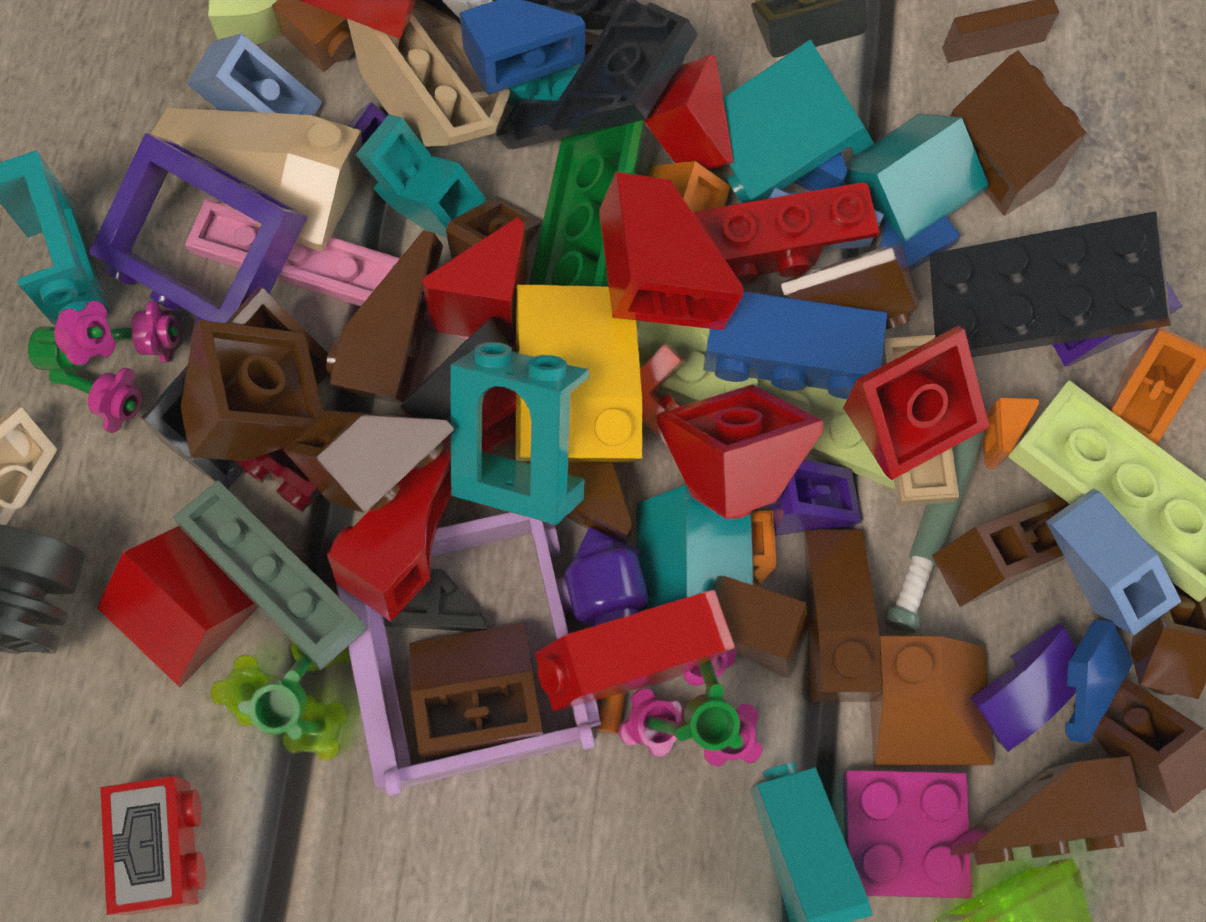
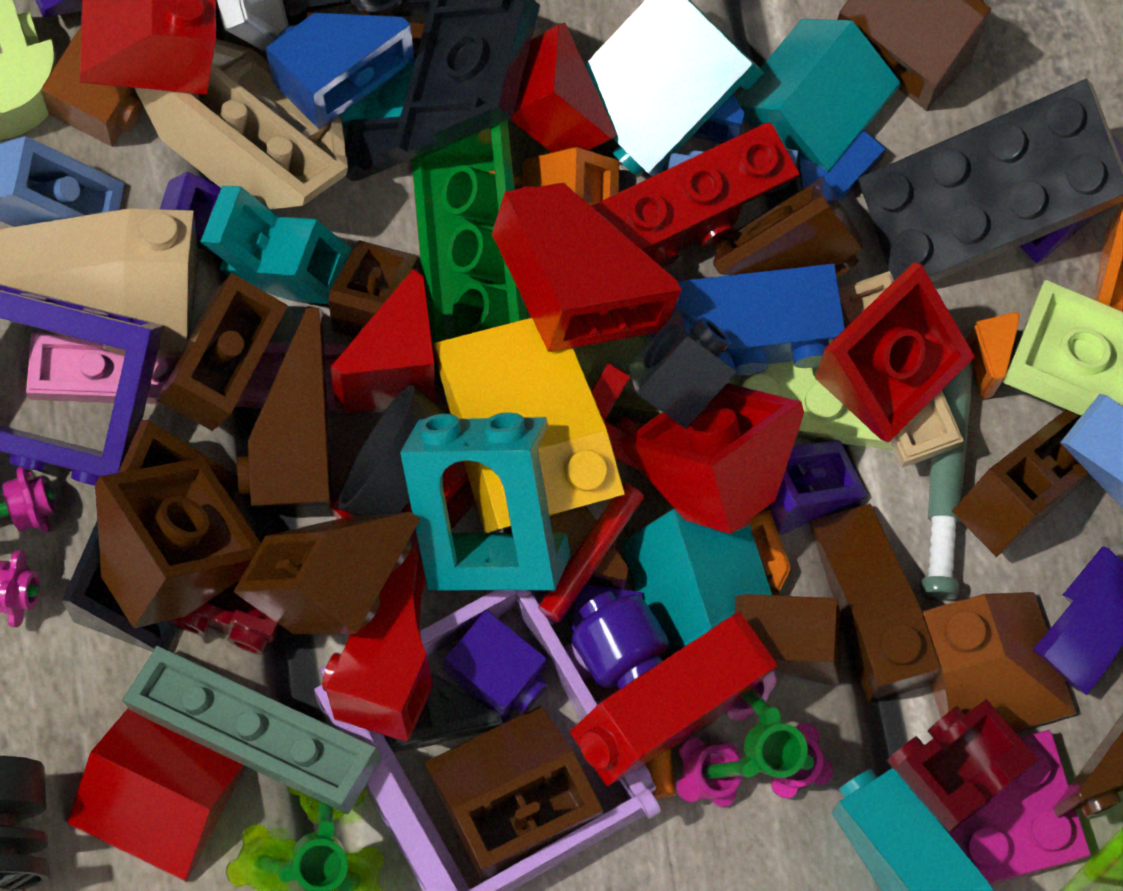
camera: 20 degrees left, 0 degrees up
(345, 249) = (222, 352): none -> reddish brown brick
(496, 579) = (497, 667): none -> dark purple brick
(603, 502) = (591, 553): none -> red piece
(728, 364) = (683, 367): none -> black brick
(879, 784) = (963, 763): none -> dark red cylinder

